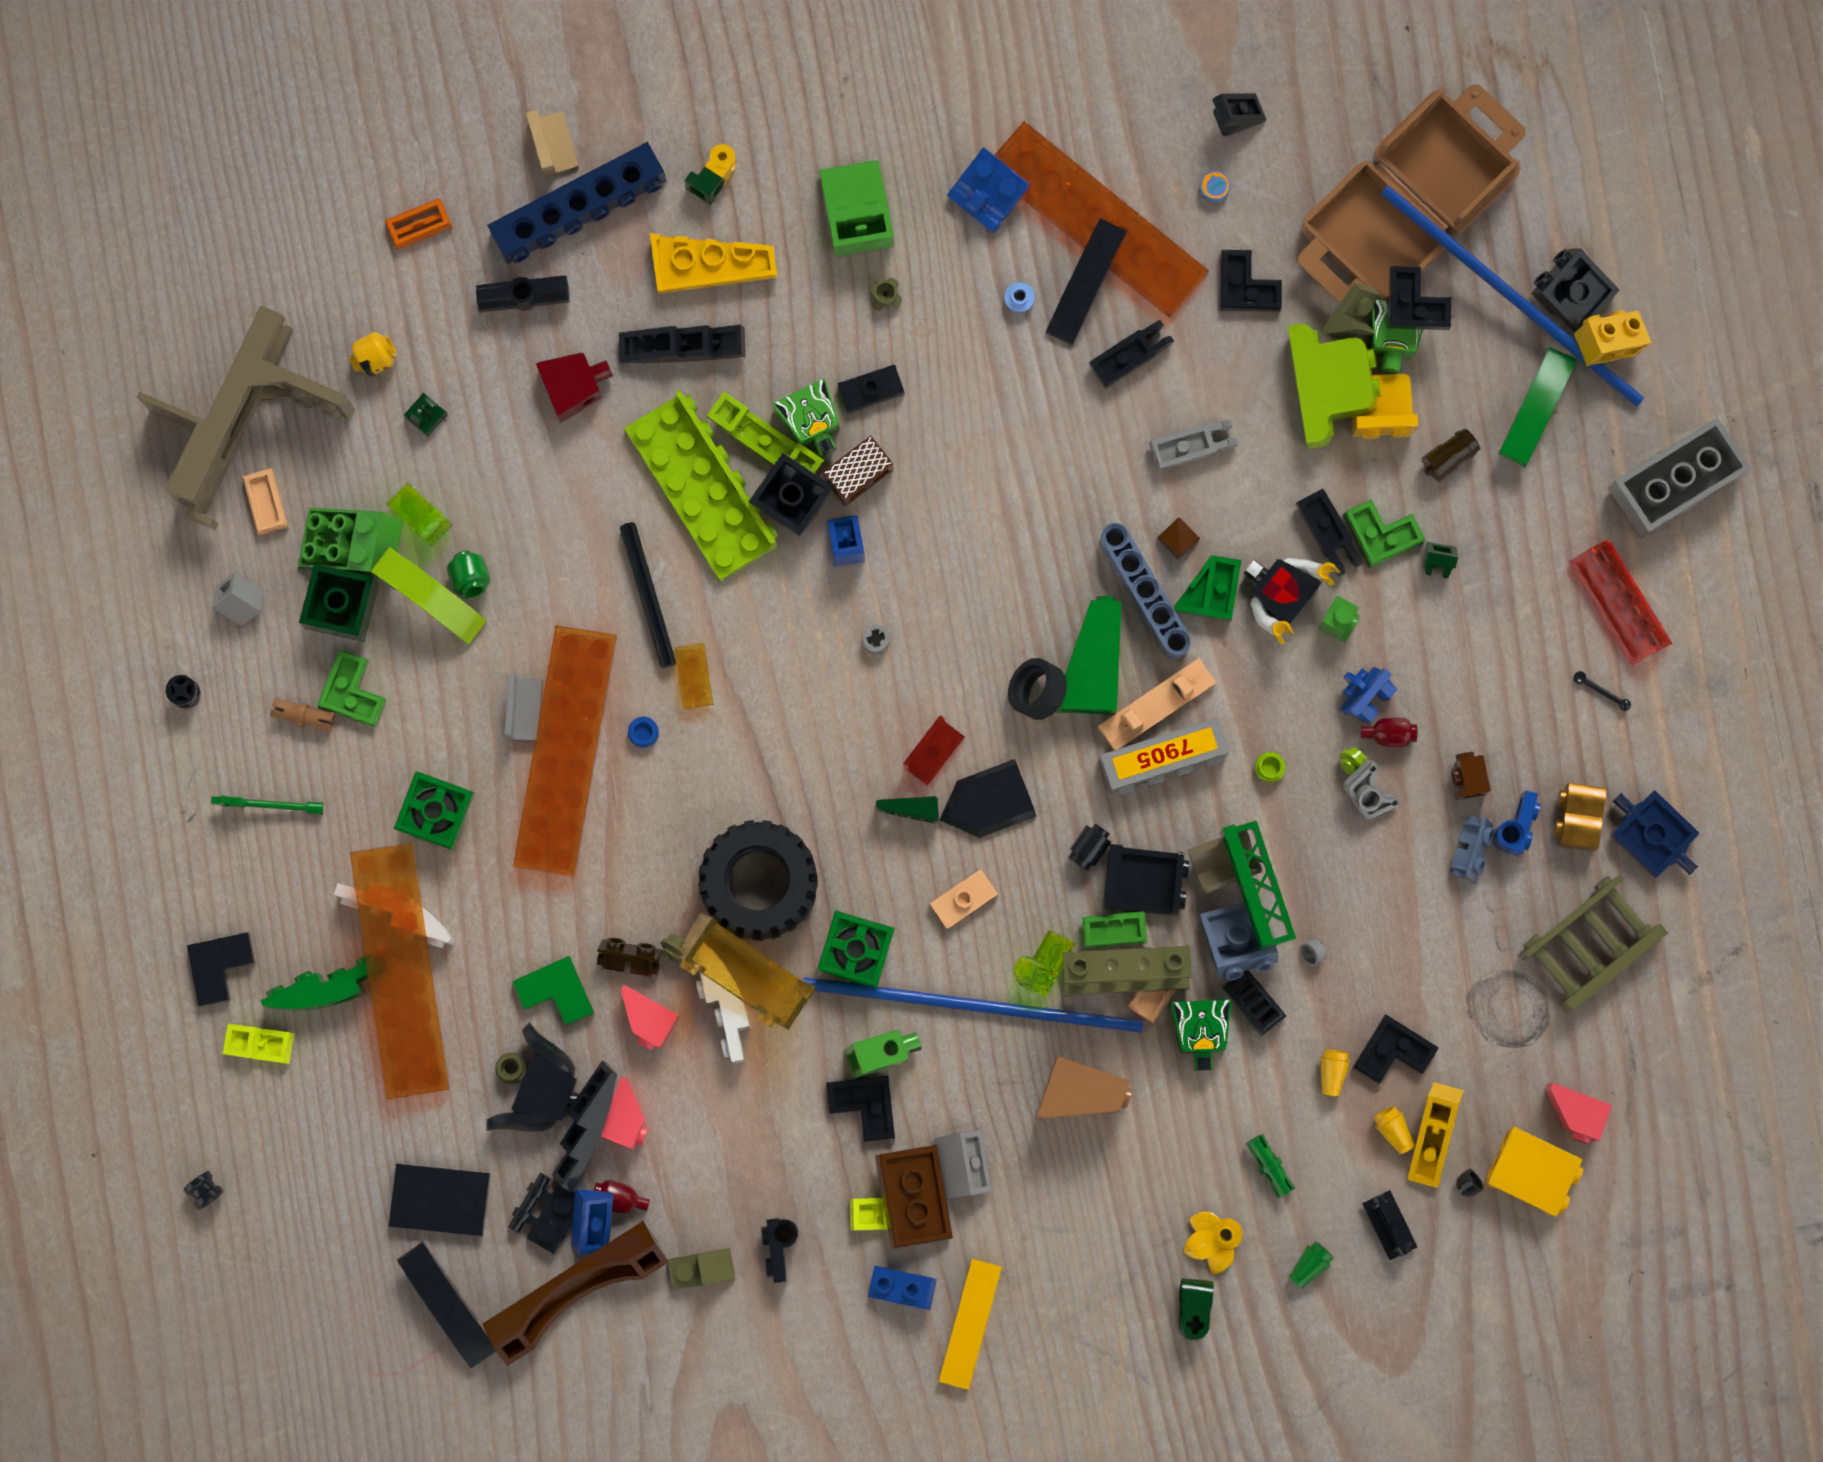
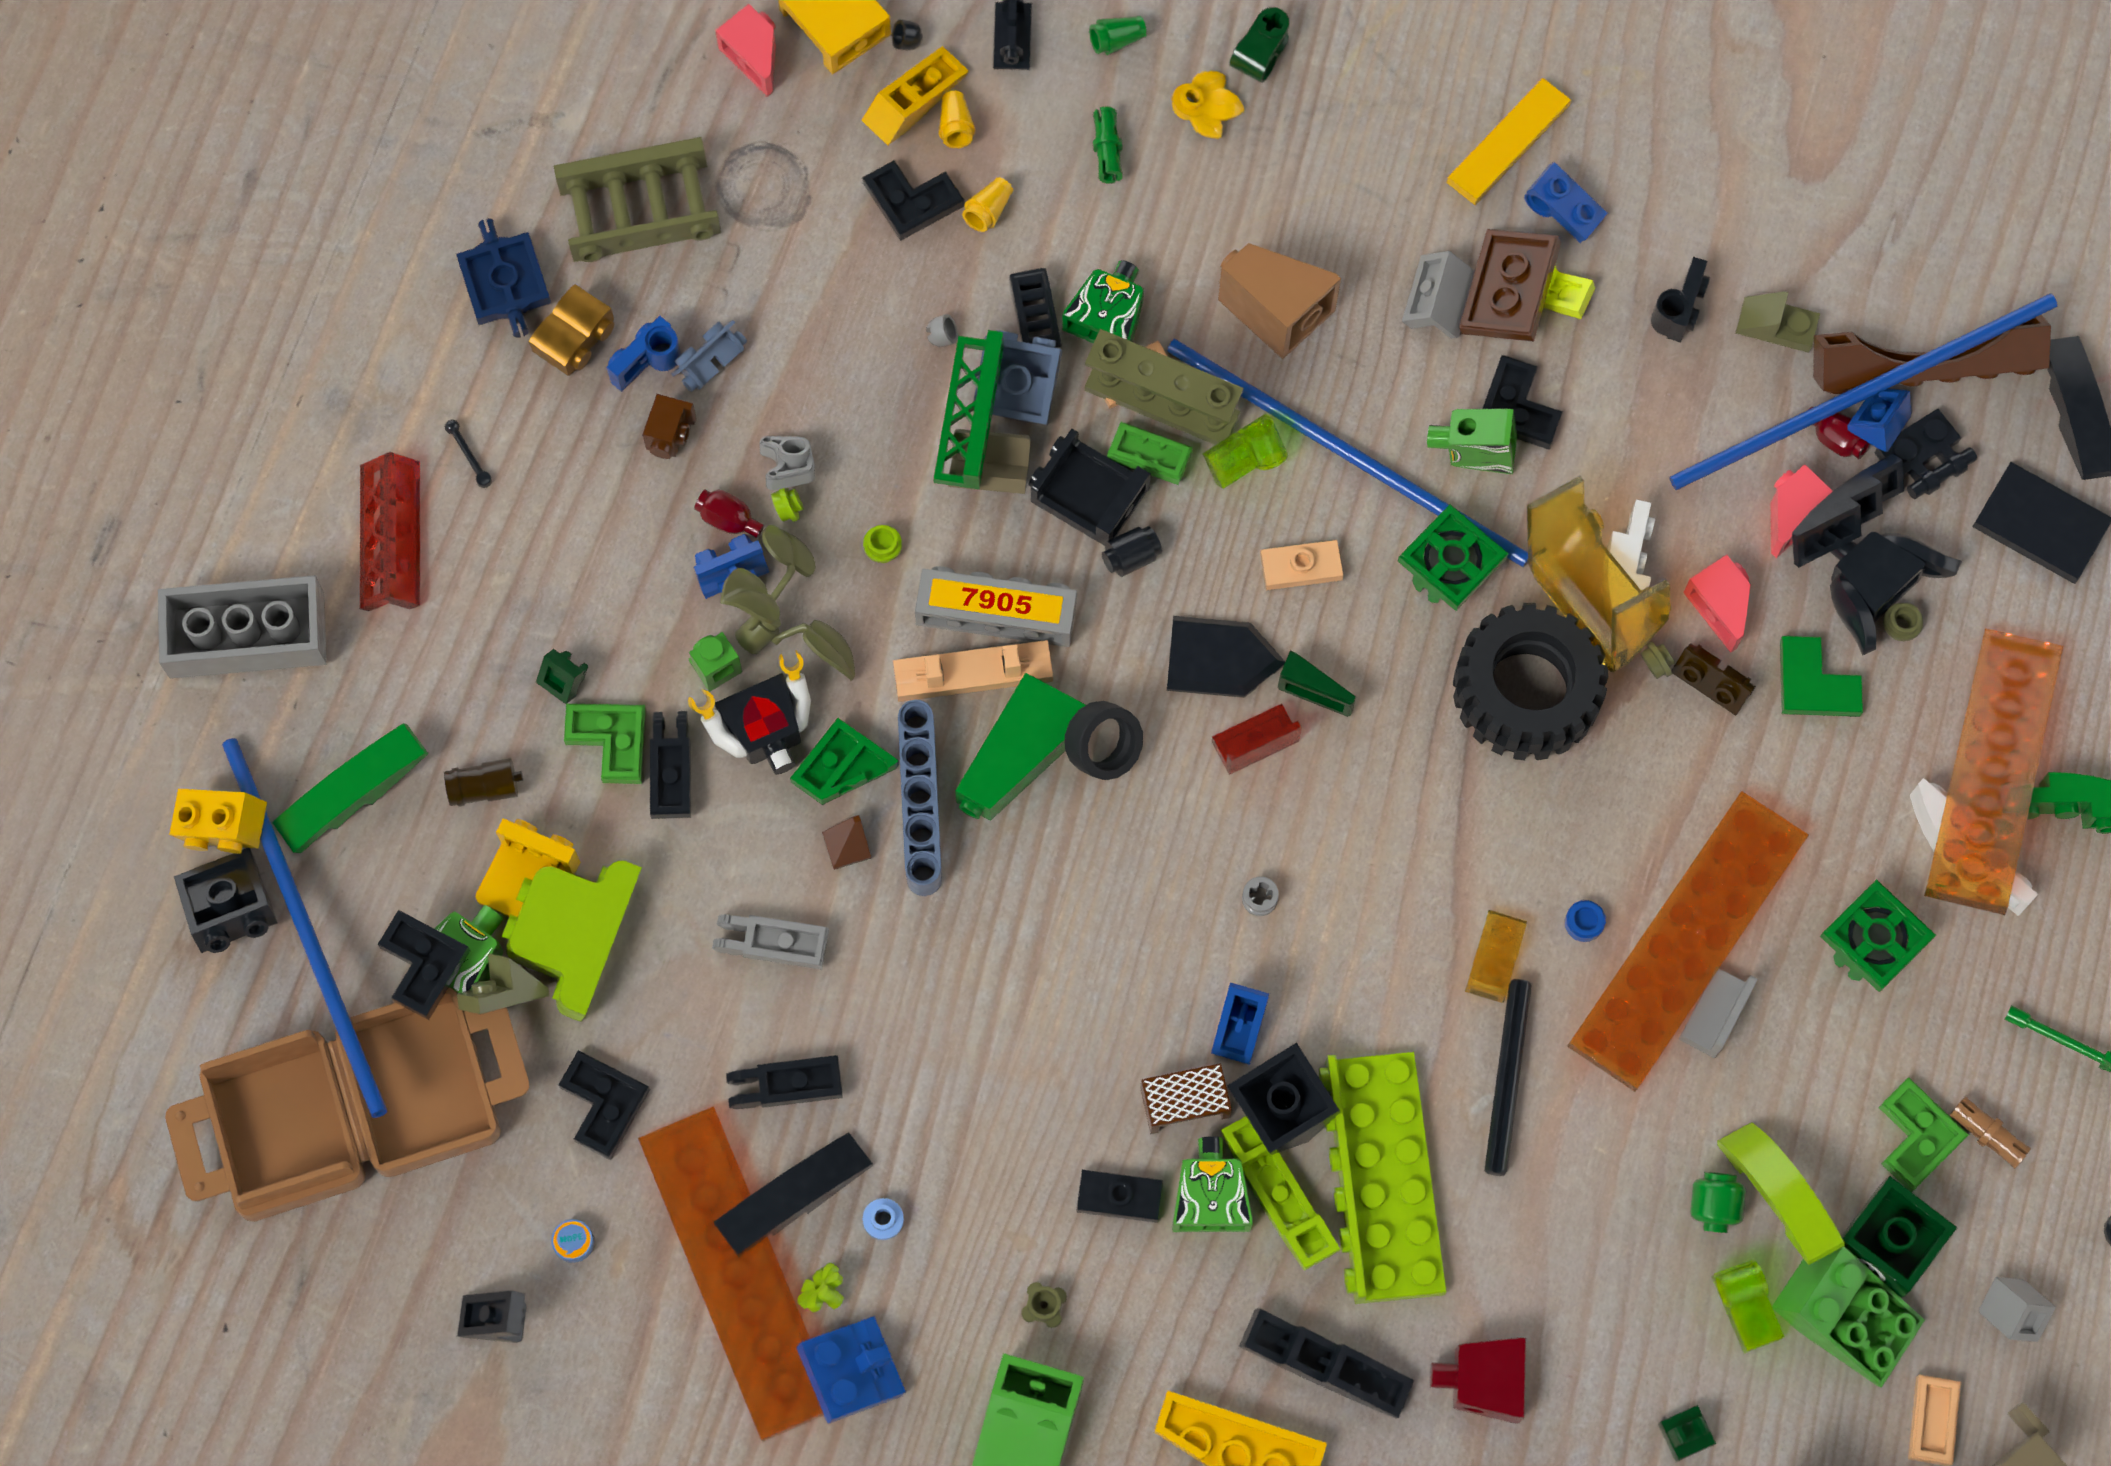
camera: 155 degrees left, 10 degrees down
(611, 1232) = (1863, 391): none -> blue piece
(1035, 231) = (822, 1289): none -> lime plant
(1326, 651) = (750, 594): none -> olive plant

